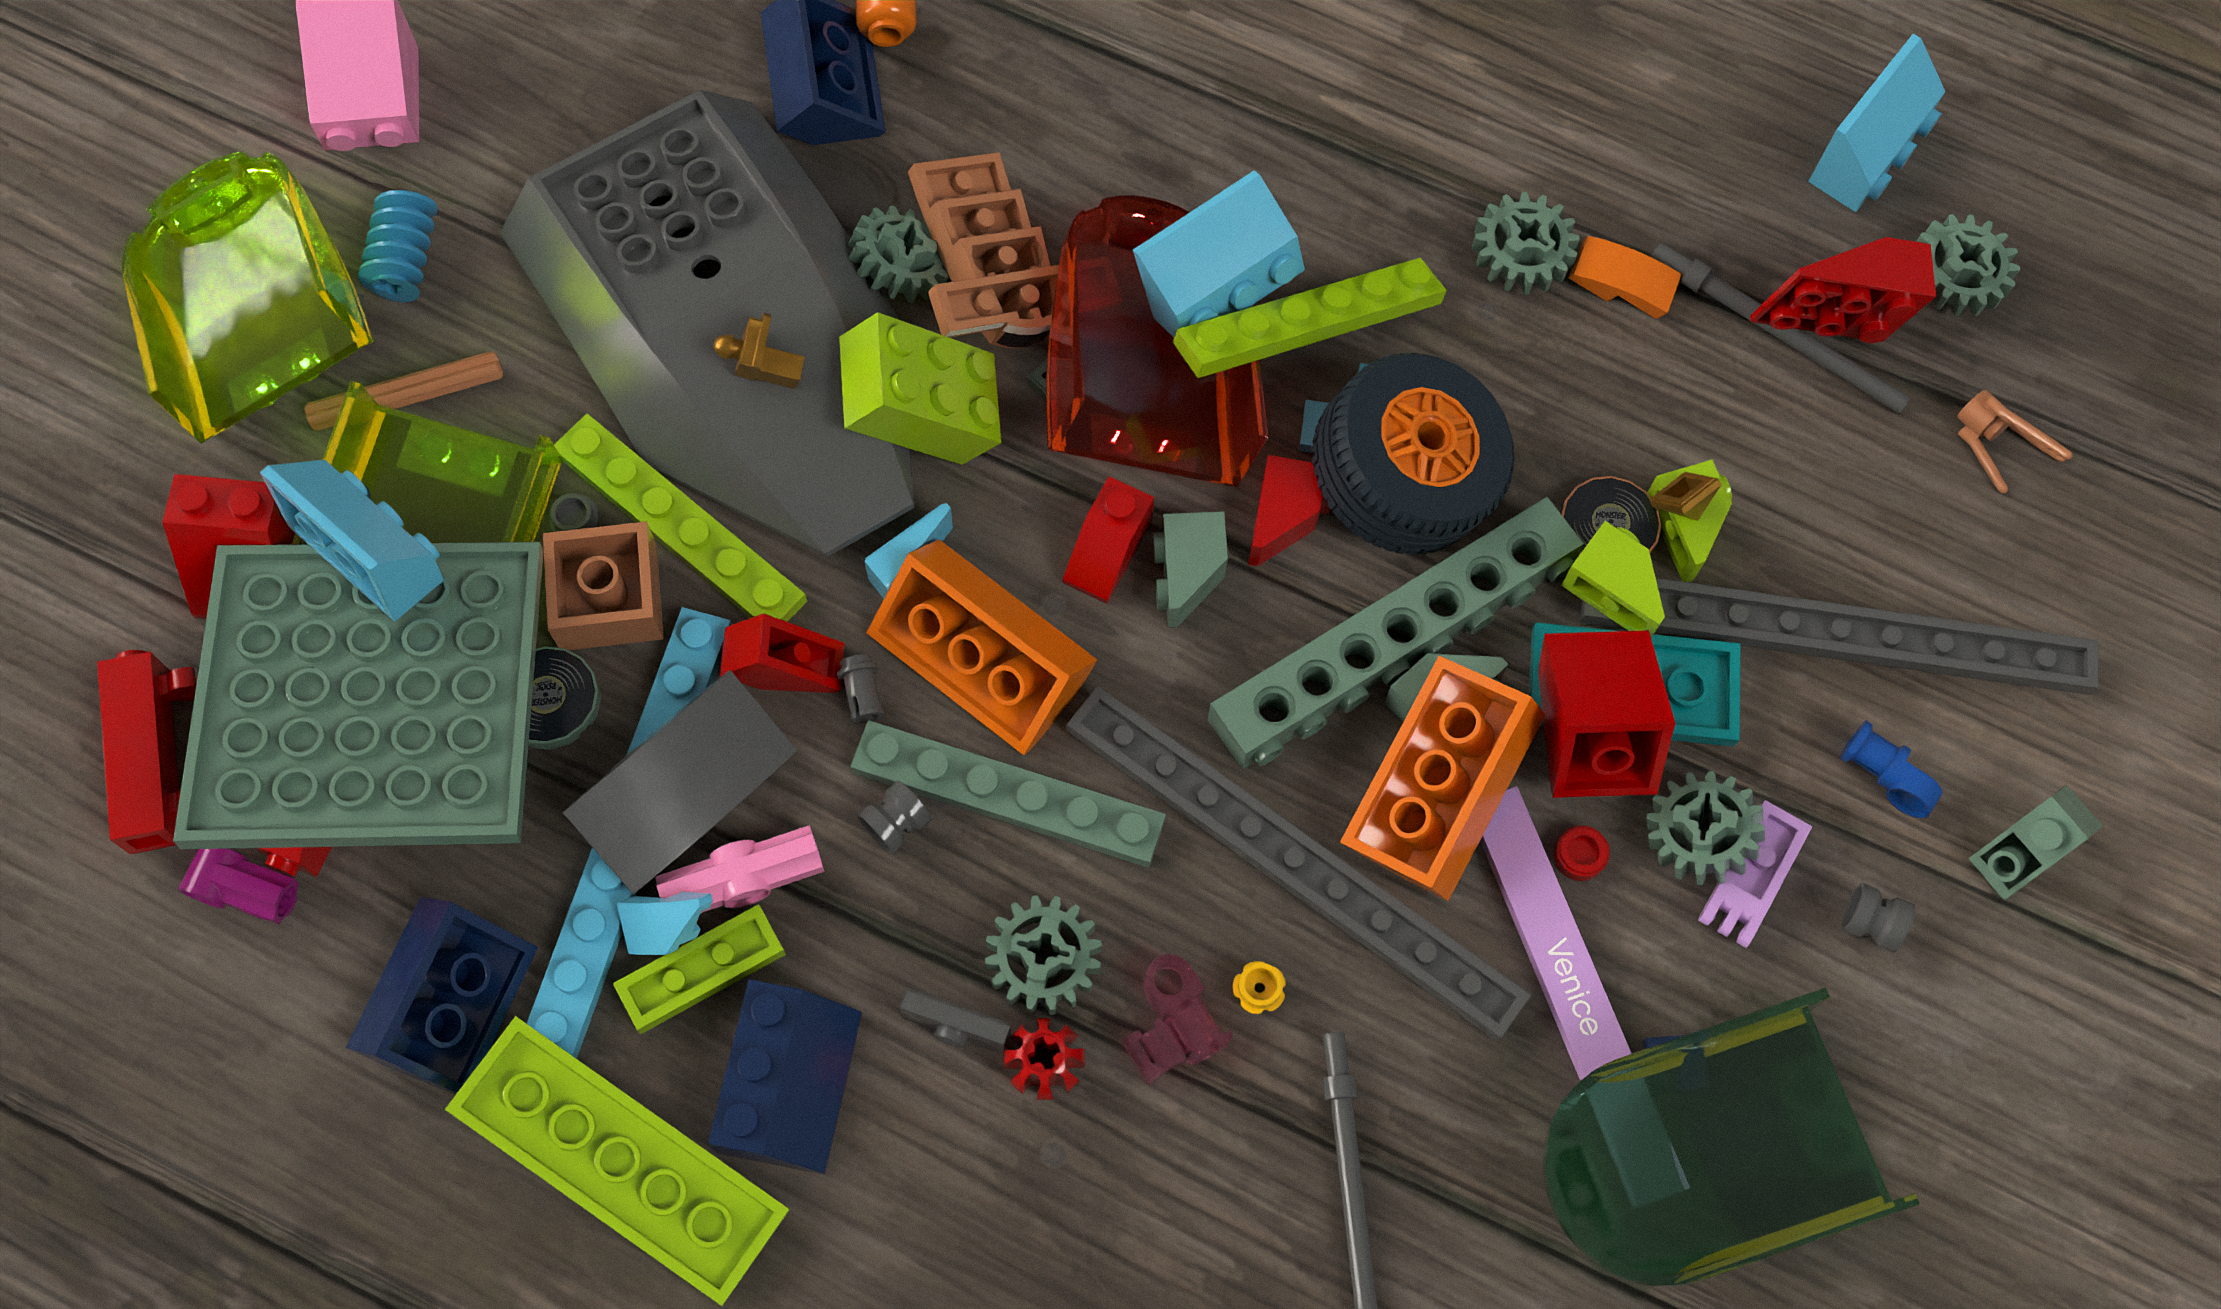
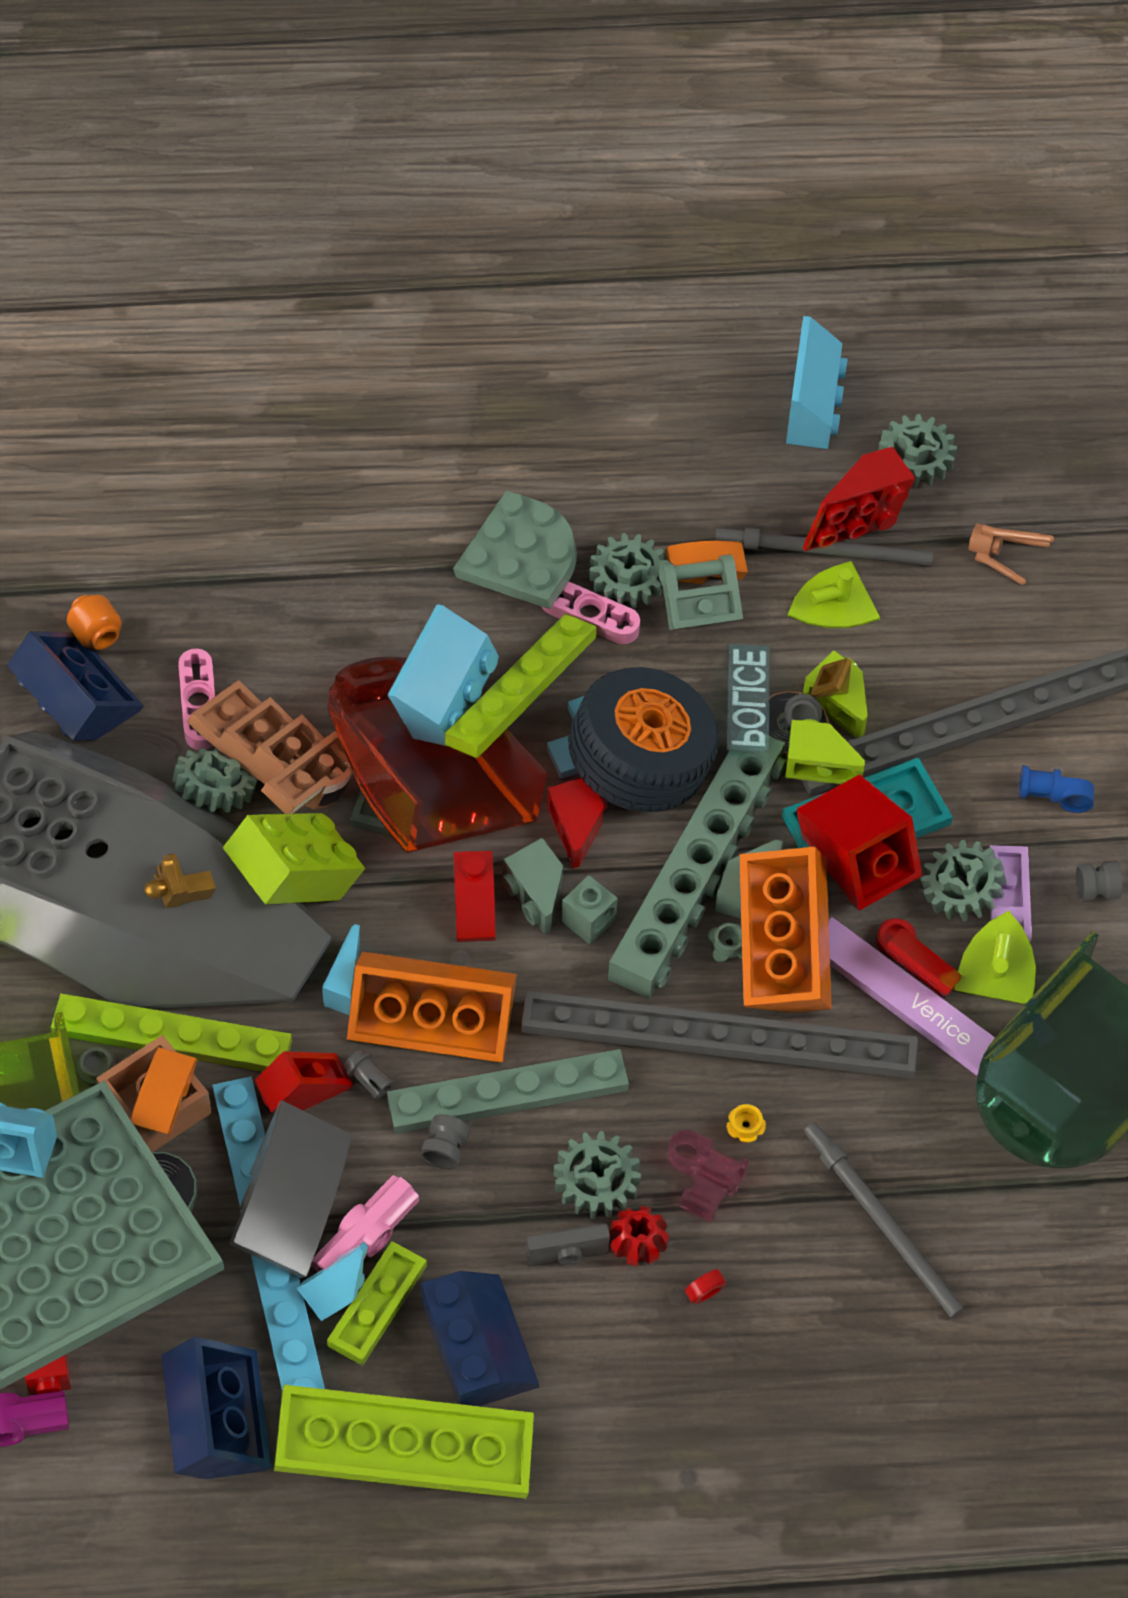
camera: 30 degrees left, 10 degrees down
(596, 587) = (163, 1090): none -> orange slope
(947, 133) = (189, 687): none -> bright pink beam
(1086, 1167) = (705, 1287): none -> red tile
(1230, 626) = (589, 909): none -> sand green brick
(1366, 739) = (724, 933): none -> sand green plate
(1413, 160) = (521, 551): none -> sand green plate
(1451, 247) = (609, 630): none -> bright pink beam
(1573, 466) = (748, 698): none -> clear light blue sticker
(1590, 326) = (703, 604): none -> sand green plate
(1594, 904) = (922, 962): none -> red slope
(1631, 512) = (802, 707): none -> dark grey plate
(1690, 953) = (999, 962): none -> lime shield
(1755, 397) = (834, 600): none -> lime shield

